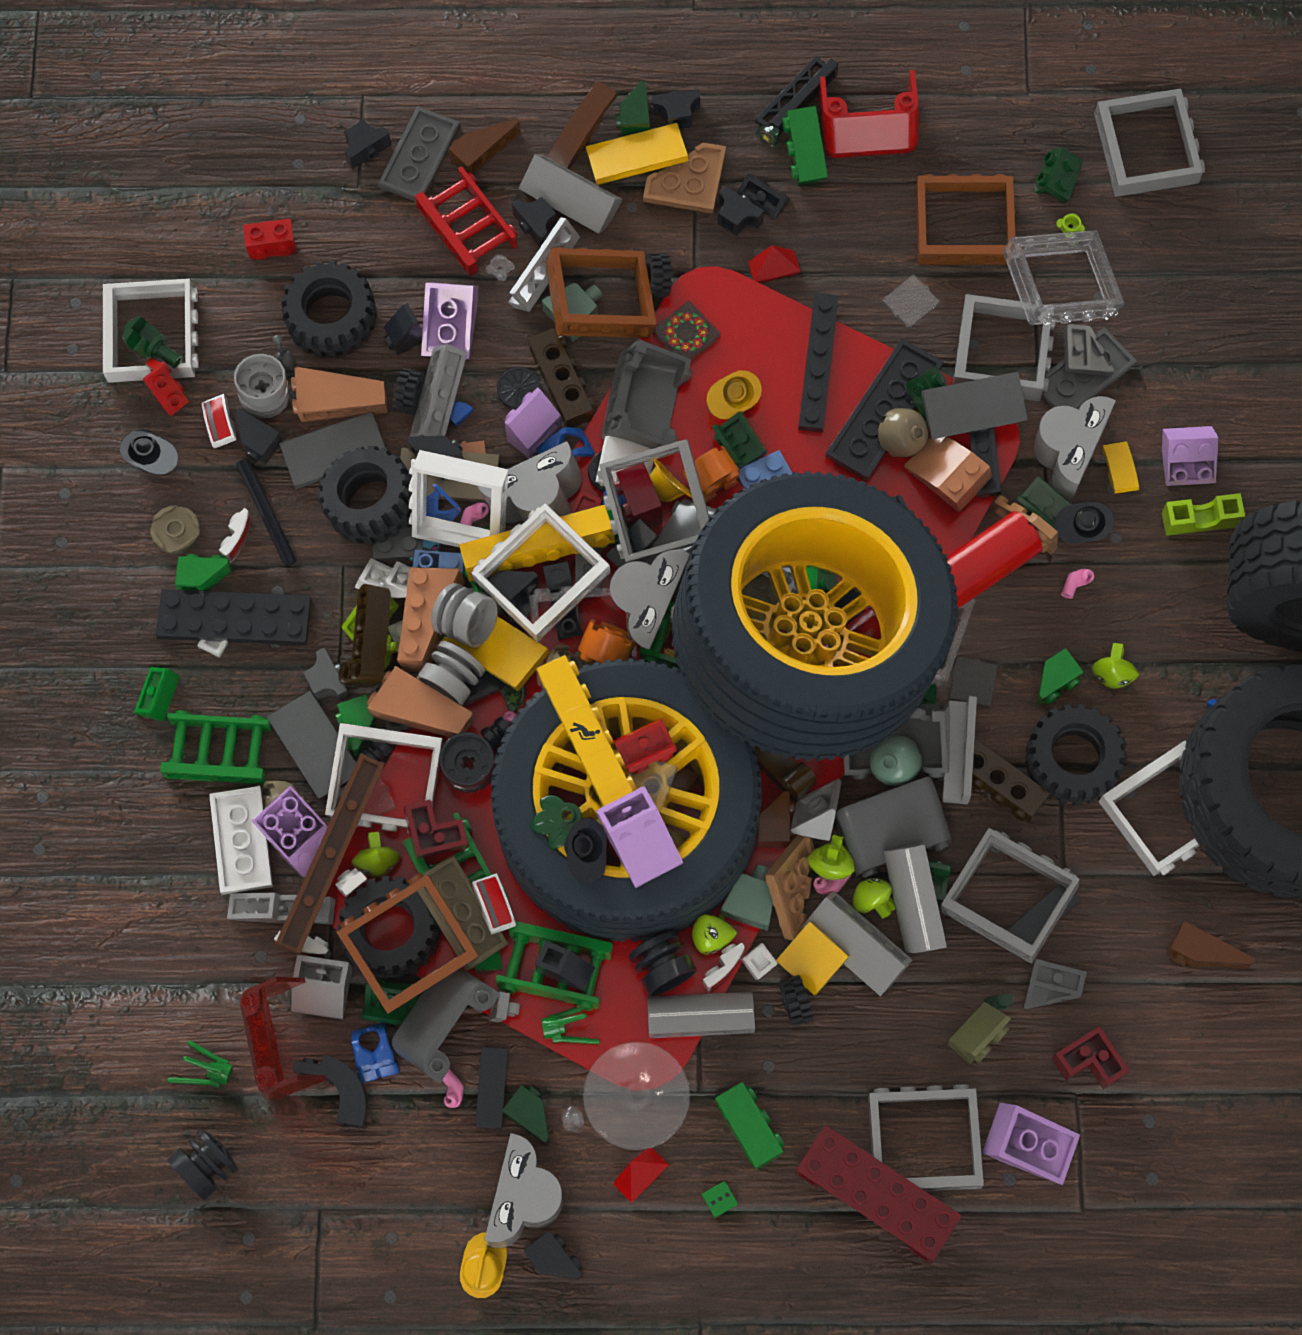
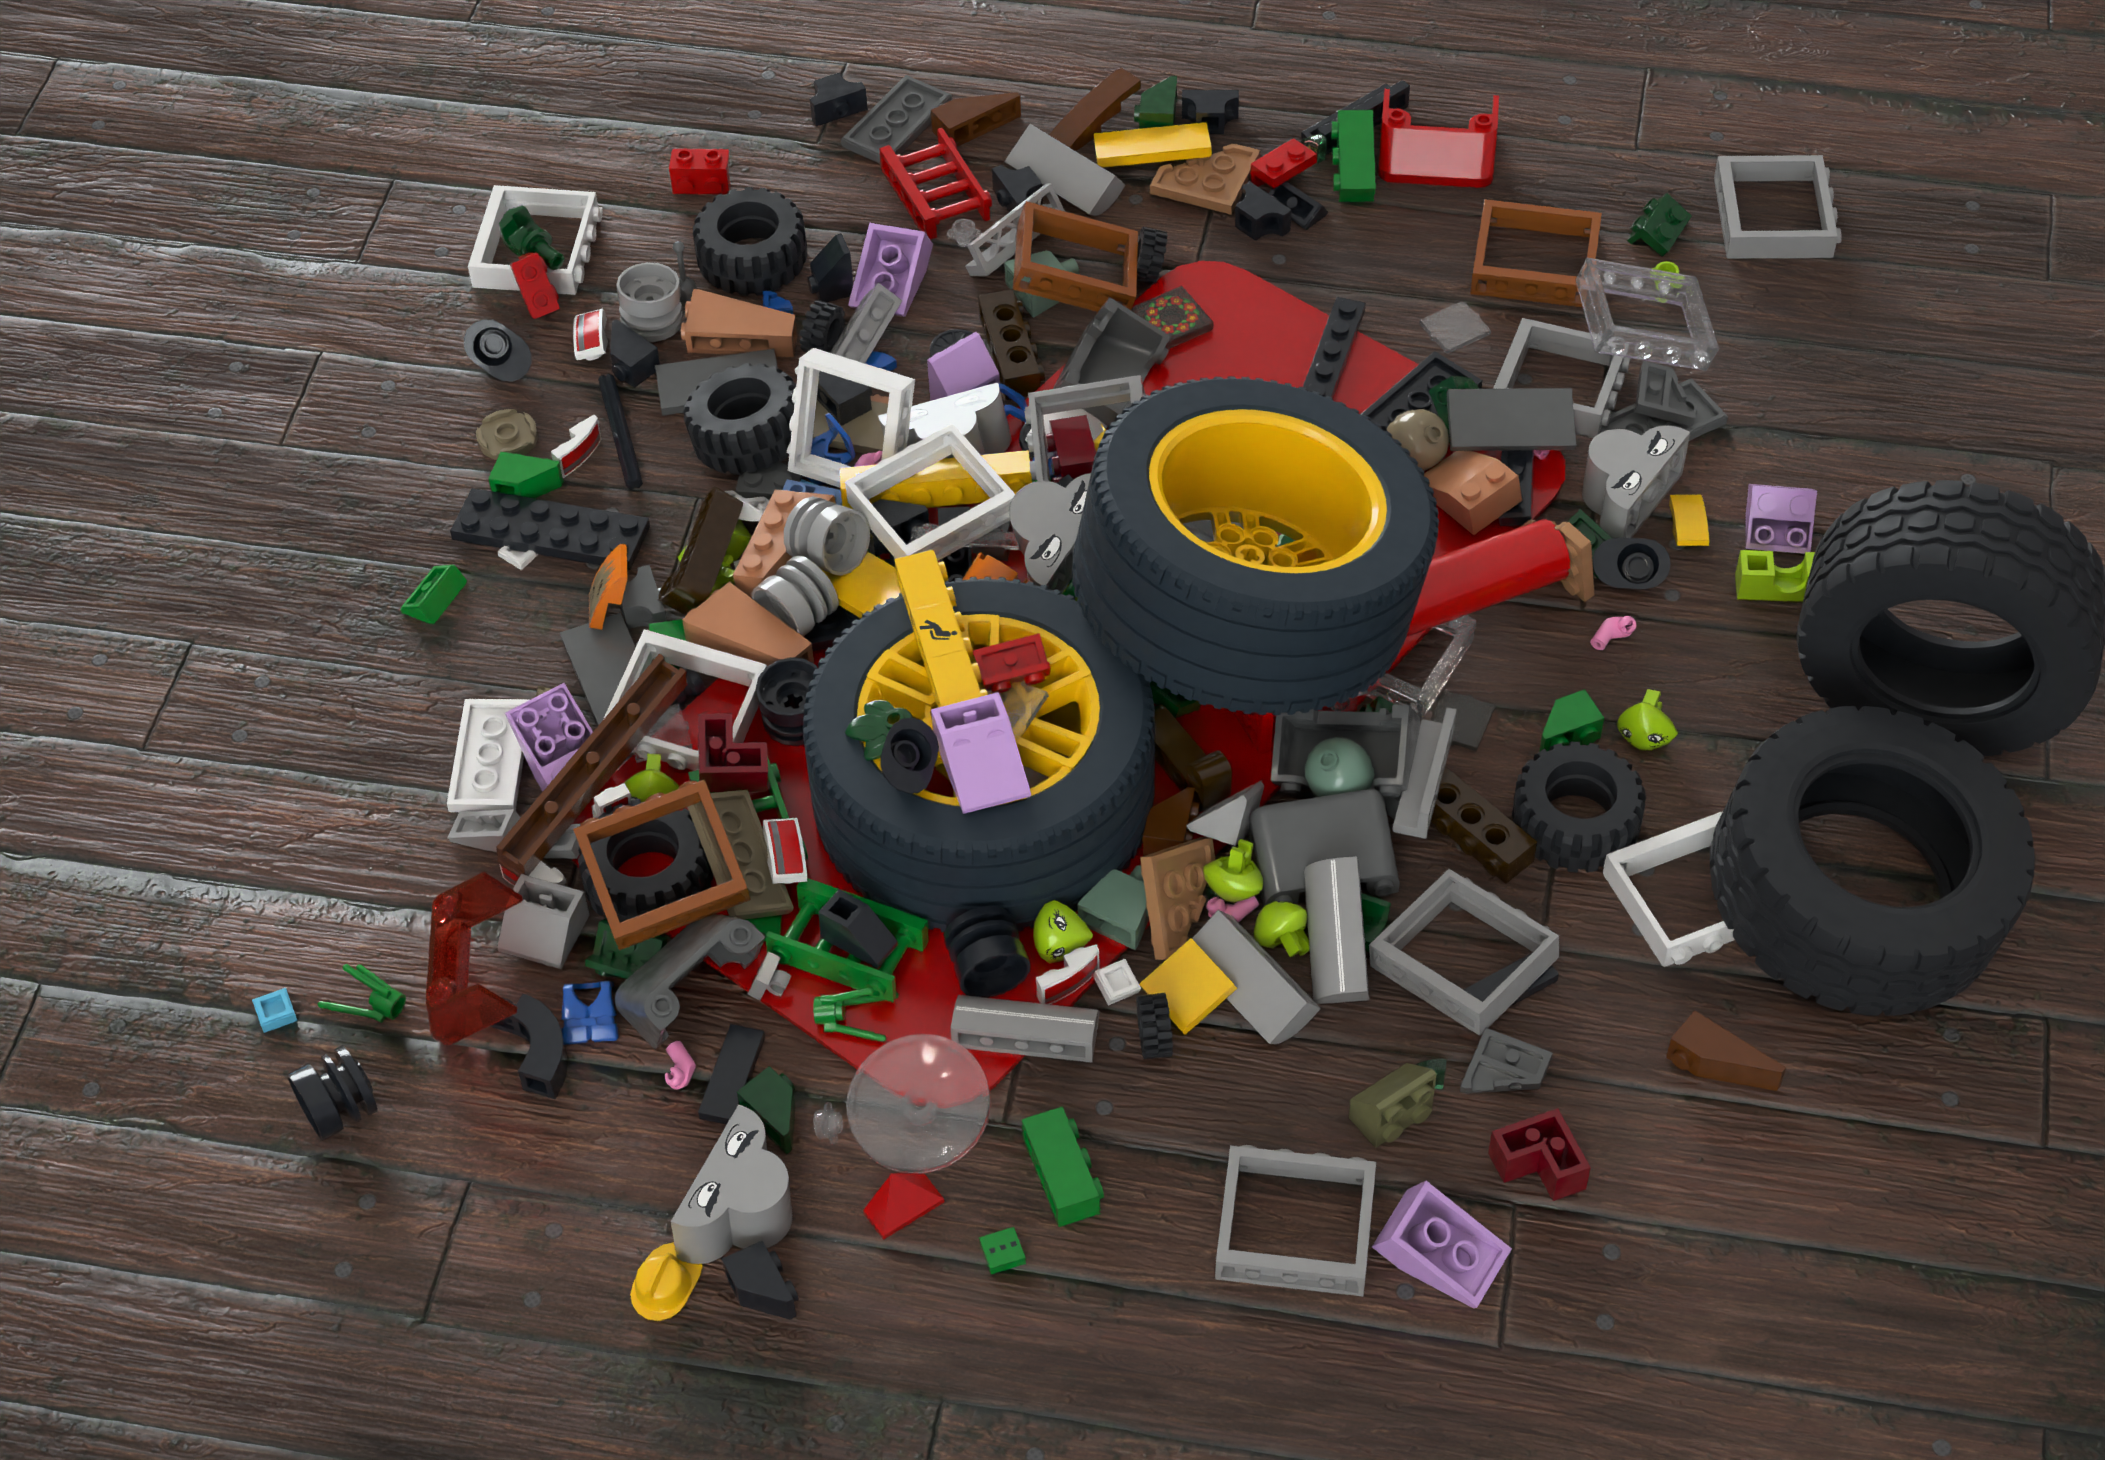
camera: 10 degrees right, 20 degrees down
(136, 1091) = (274, 1010): none -> medium azure tile
(201, 769) = (481, 680): green fence -> none
(297, 675) = (608, 586): none -> orange slope
(362, 365) = (775, 302): none -> blue tile
(734, 394) = (1216, 364): yellow piece -> none
(747, 160) = (1282, 164): none -> red bracket
(774, 264) = (1294, 268): red slope -> none
(878, 1193) = (1218, 1268): dark red bracket -> none

